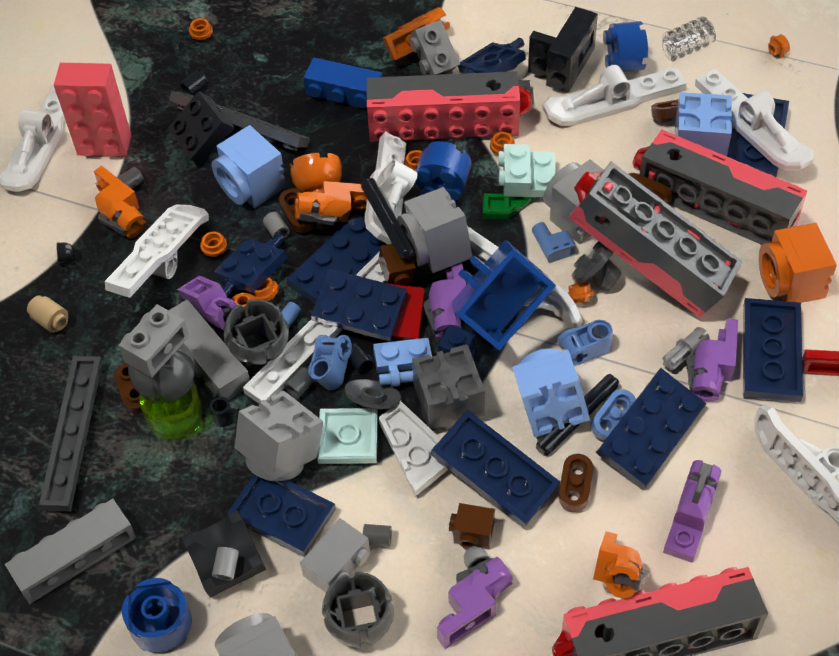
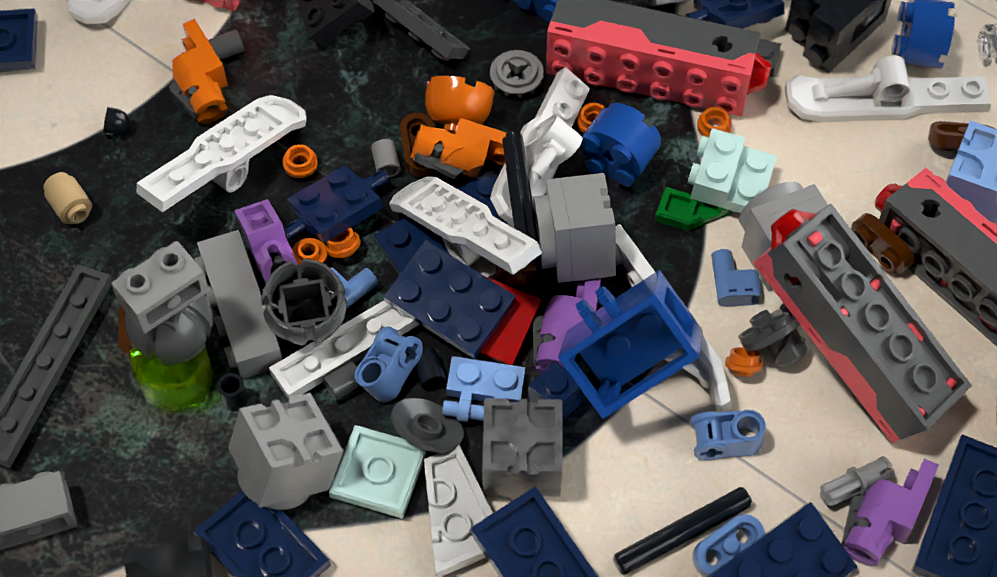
camera: 15 degrees right, 5 degrees up
(249, 168) = (374, 72): light blue piece -> none
(350, 138) = (519, 62): none -> light grey gear
(355, 249) = (465, 224): none -> white piece
(550, 390) = (651, 492): light blue piece -> none

